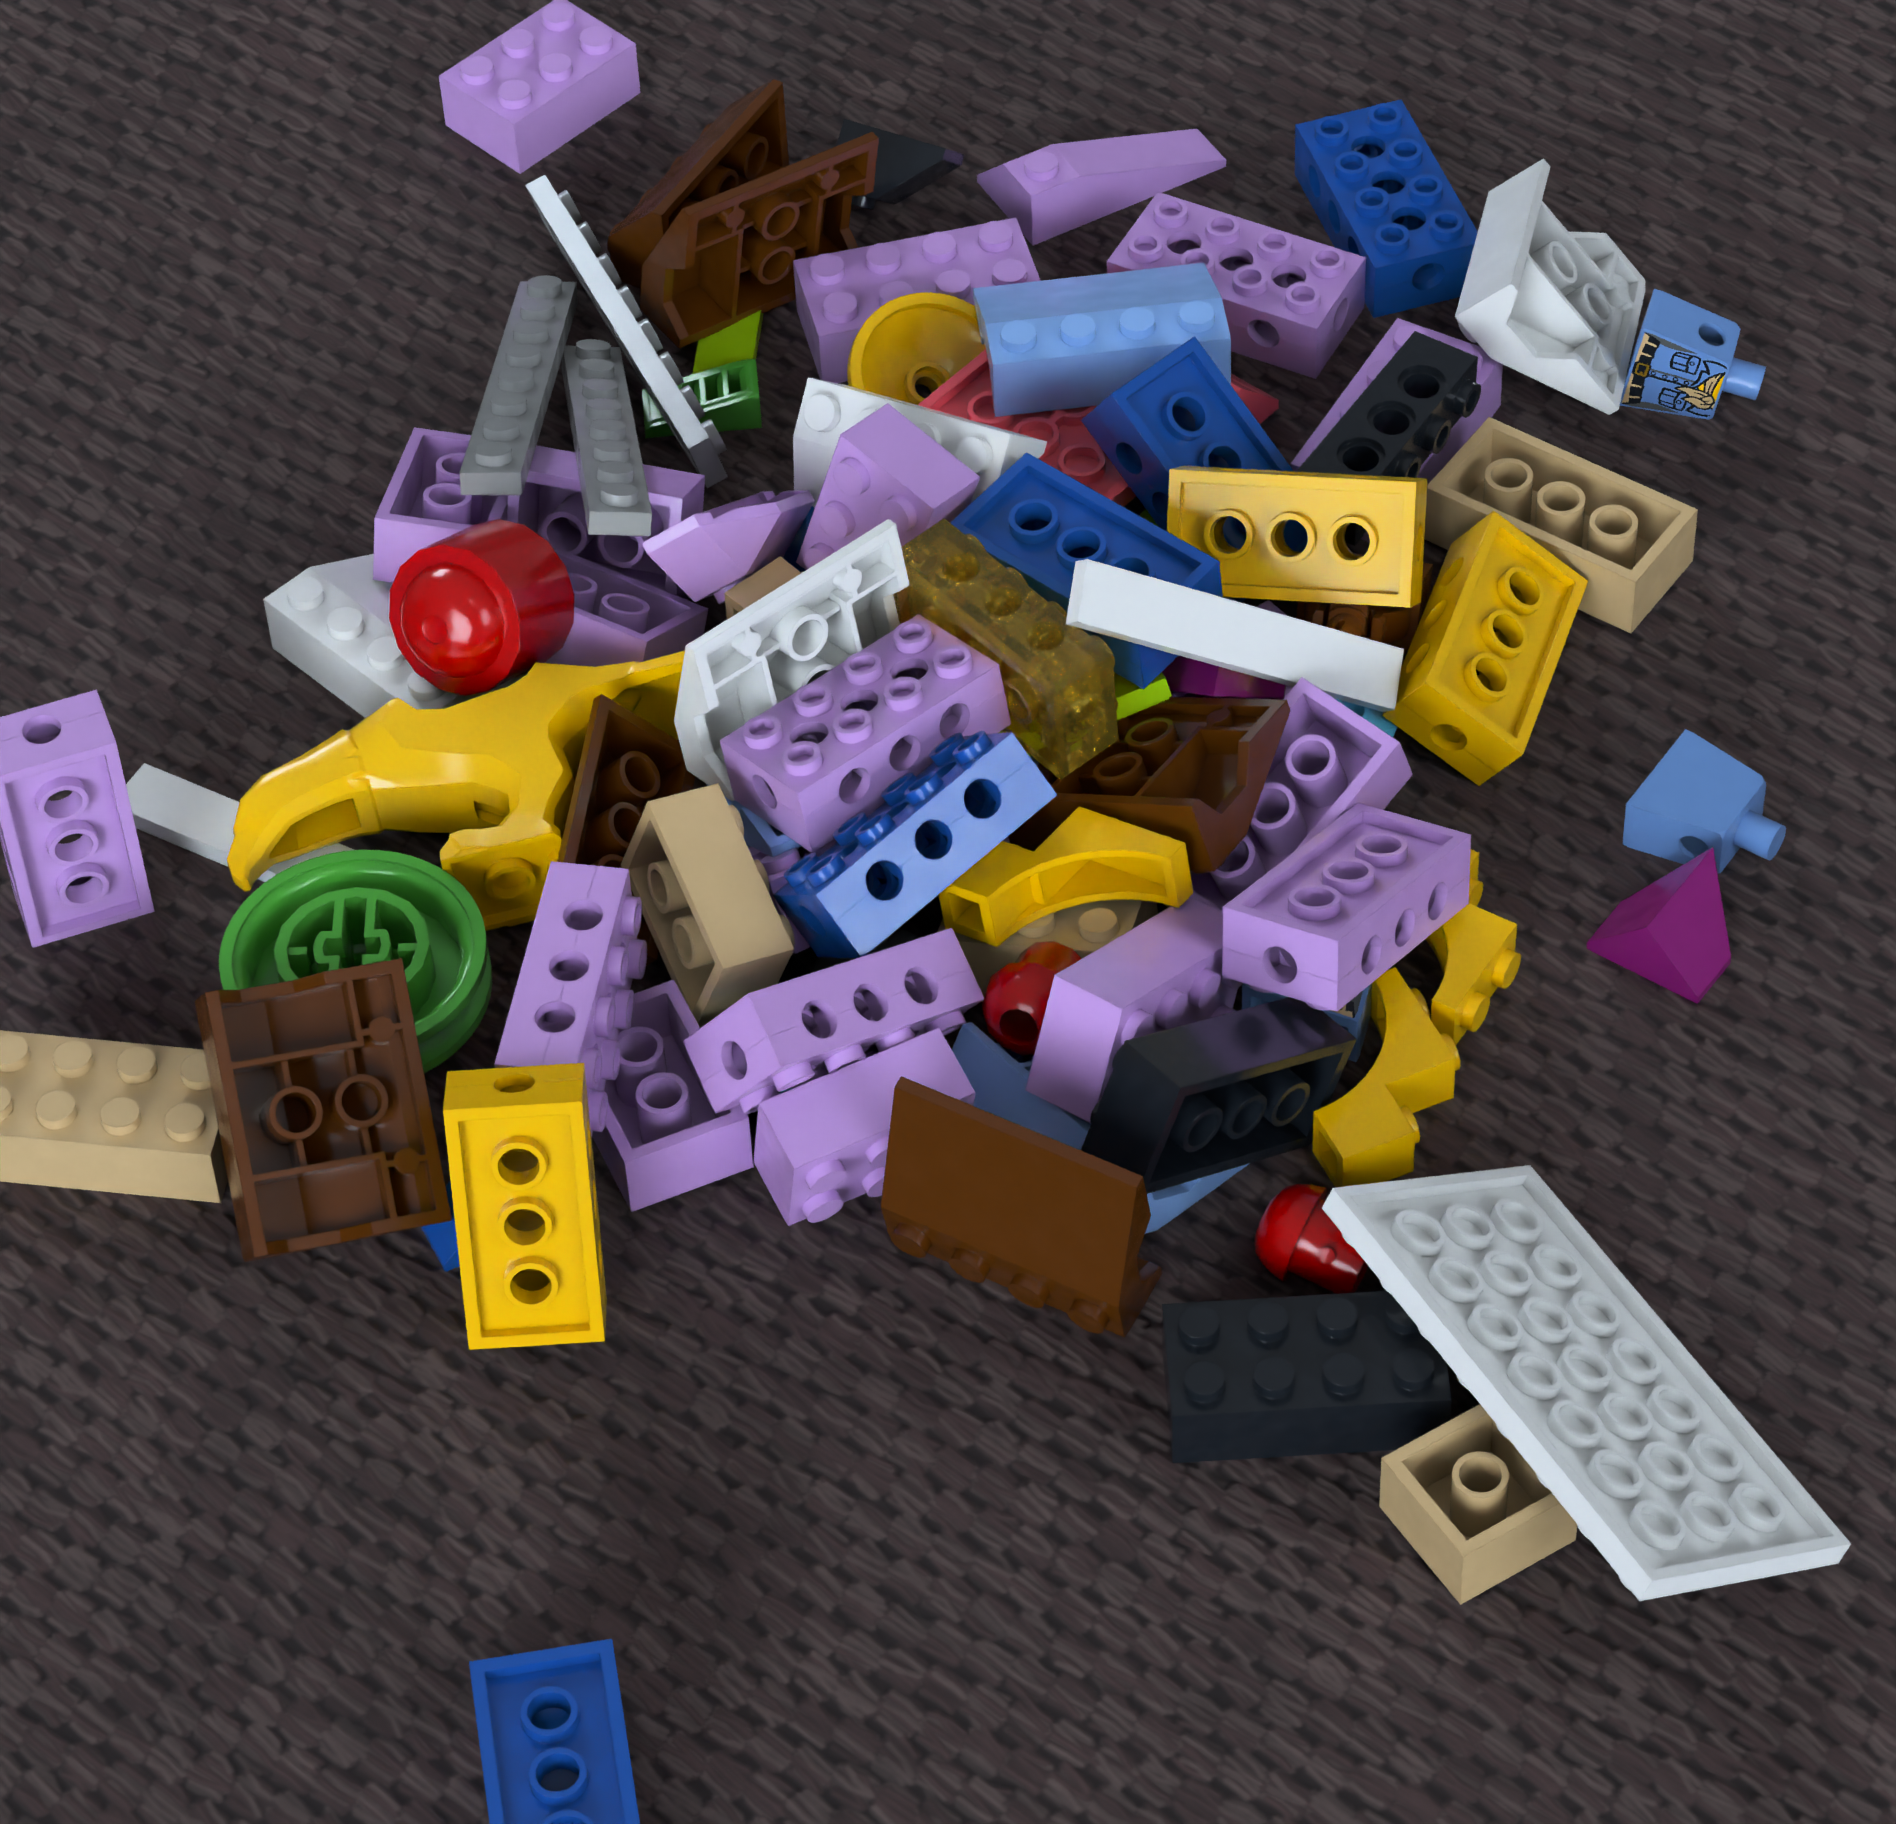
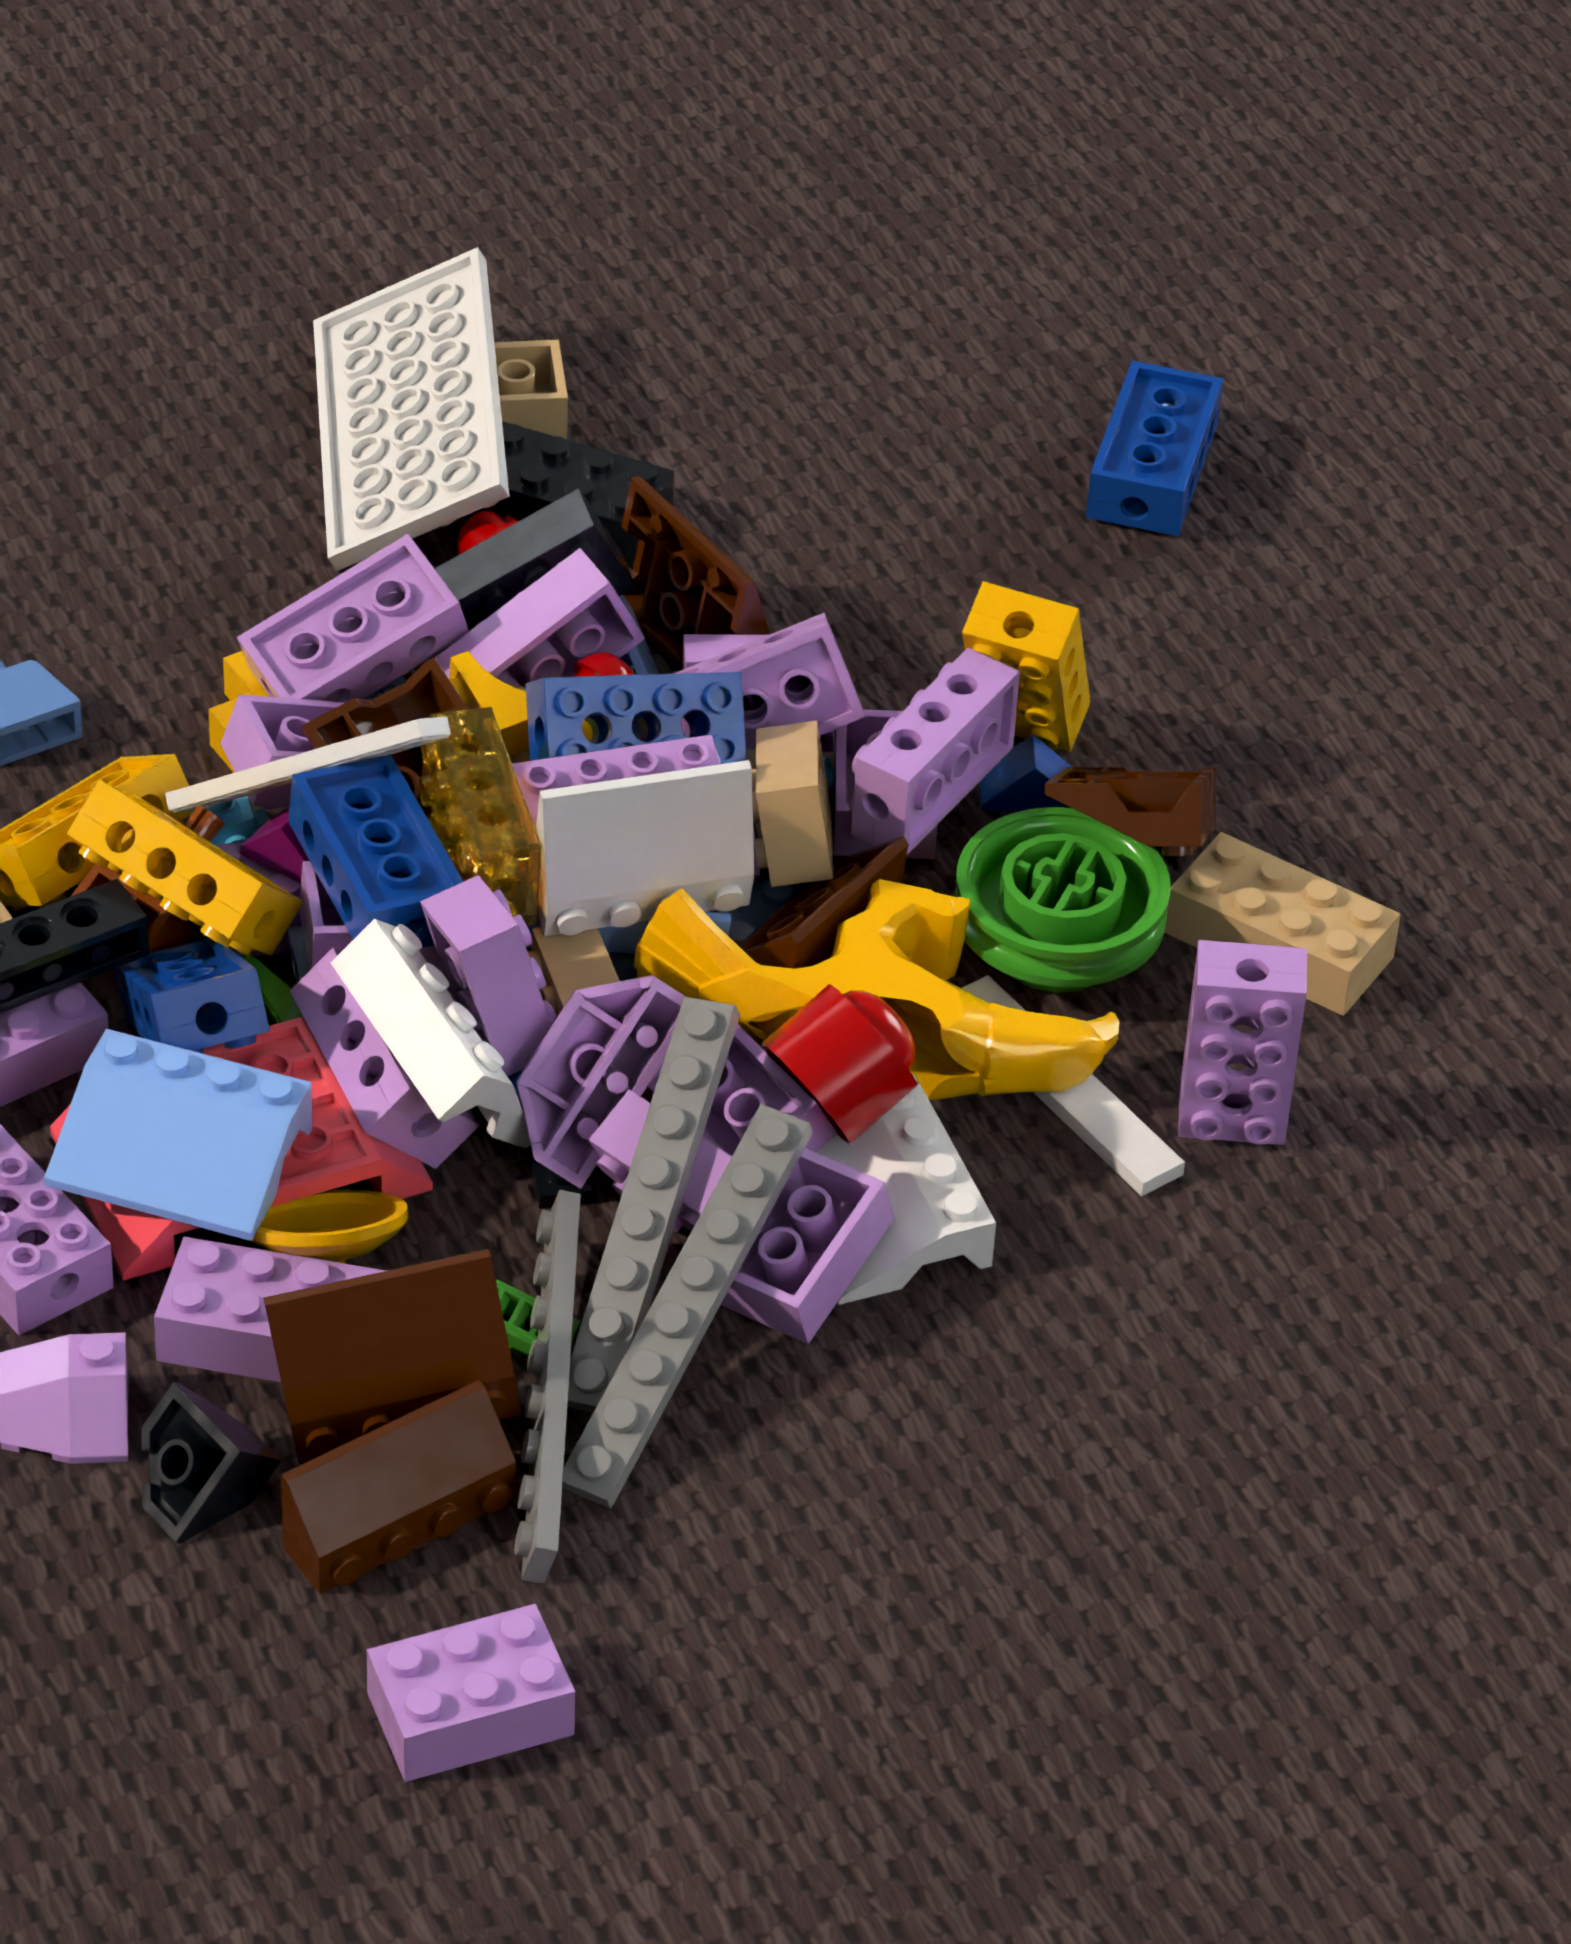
camera: 160 degrees left, 5 degrees down
(1671, 930) = (120, 655): magenta slope -> none

